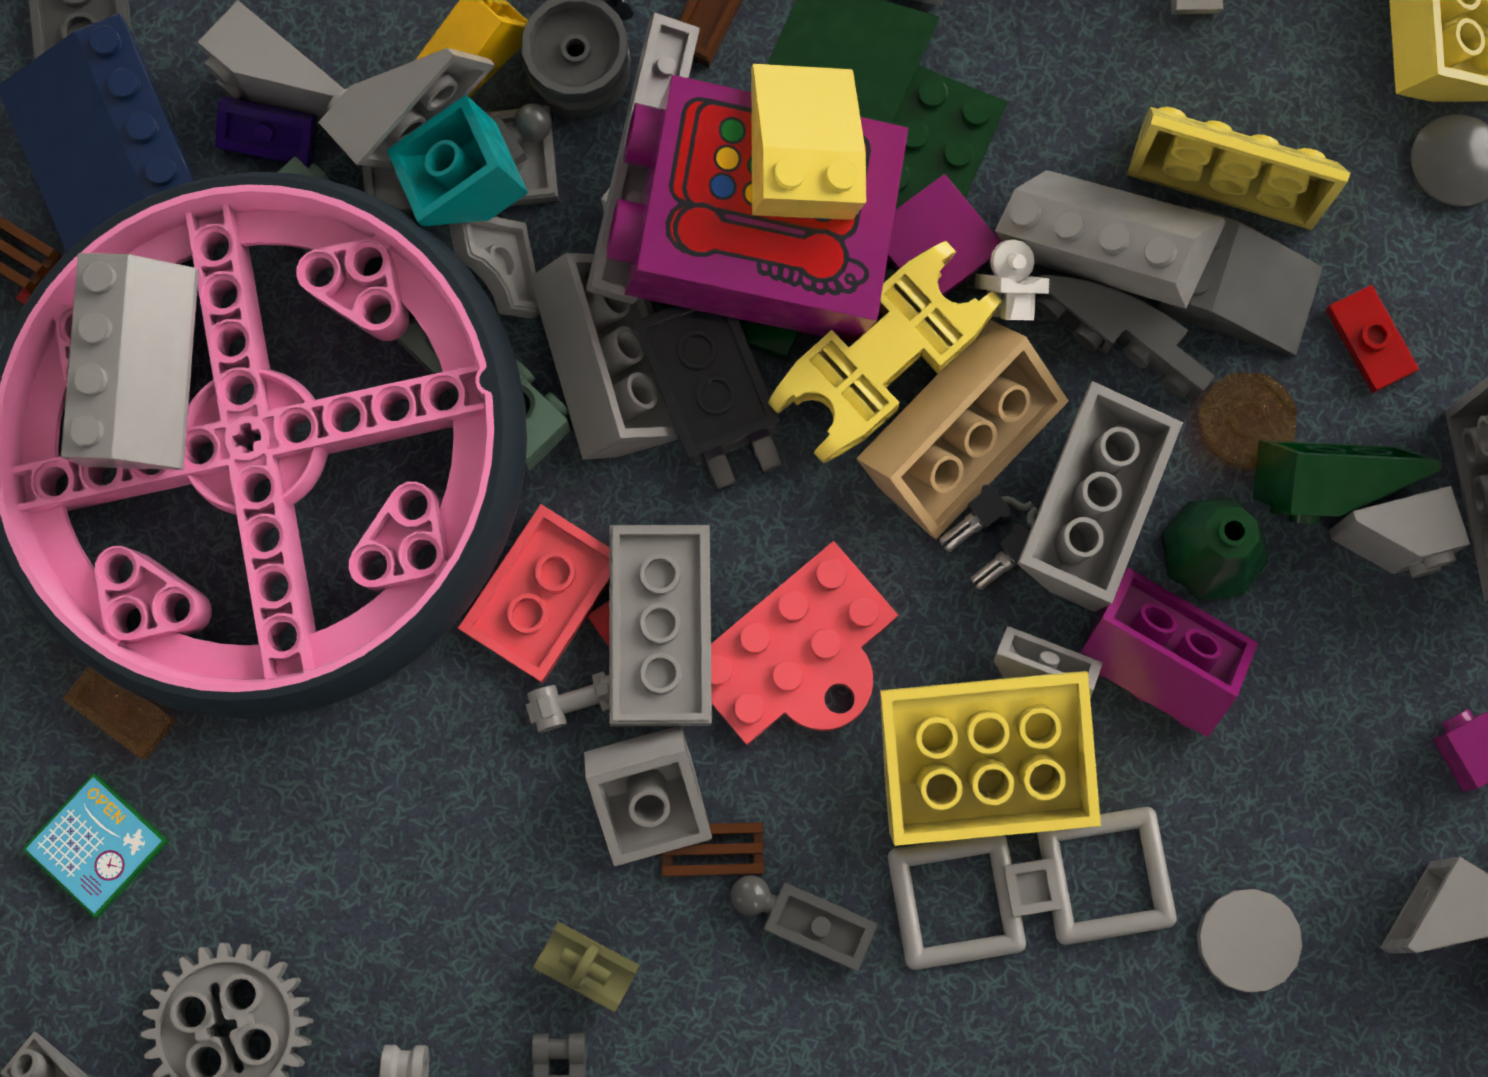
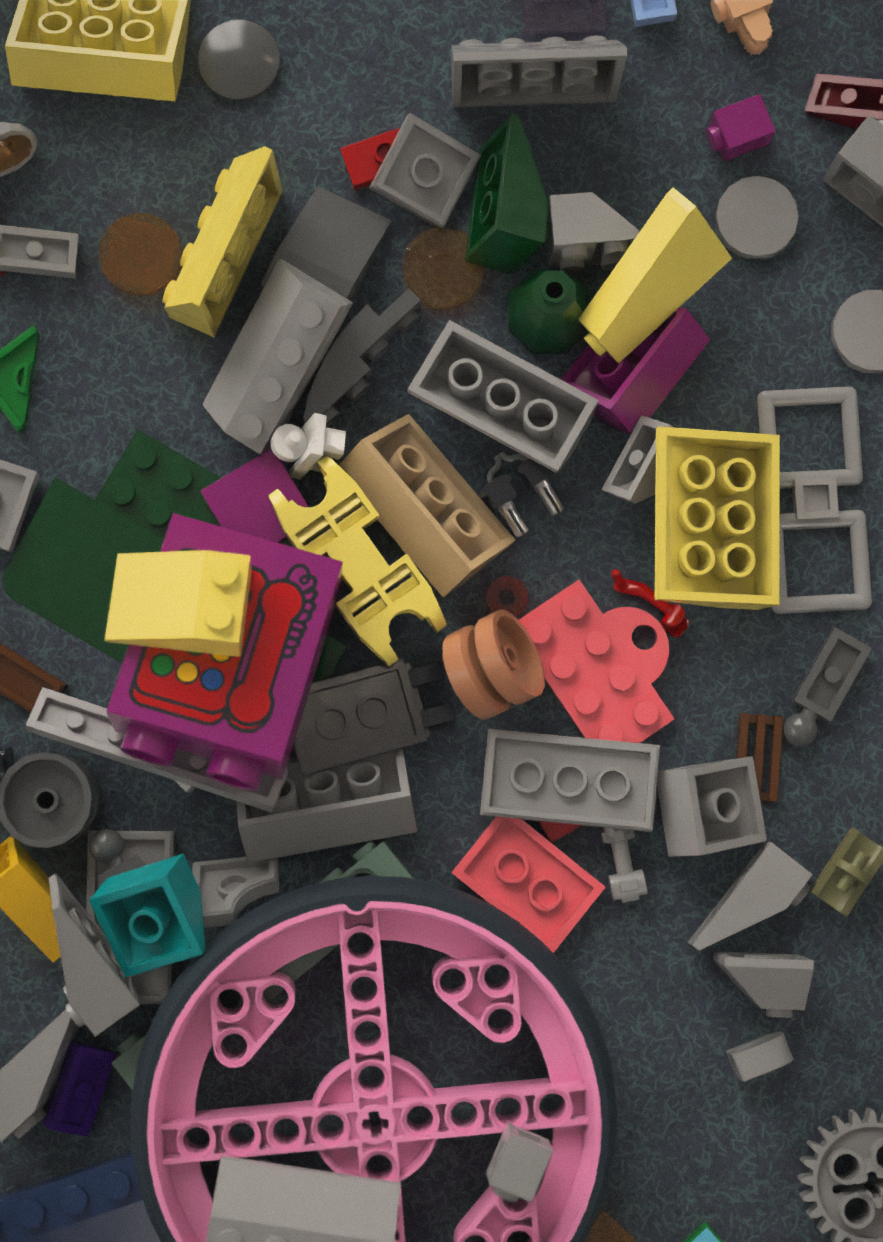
camera: 85 degrees left, 5 degrees up
(212, 594) = (518, 1163): none -> light grey brick
(361, 883) = (759, 1056): none -> light grey piece
(451, 878) = (769, 979): none -> light grey slope
(551, 863) = (760, 891): none -> light grey slope
(782, 518) = (493, 665): none -> nougat wheel
(865, 732) = (673, 621): none -> red piece
(869, 520) = (513, 585): none -> clear red plate
(1211, 79) = (140, 254): none -> clear orange tile
(1269, 652) = (654, 277): none -> light yellow slope
(1312, 572) = (586, 232): none -> light grey slope
(1360, 383) = (425, 171): none -> light grey tile
(1368, 783) = (756, 217): none -> light grey tile
(1406, 533) = (561, 146): light grey slope -> none

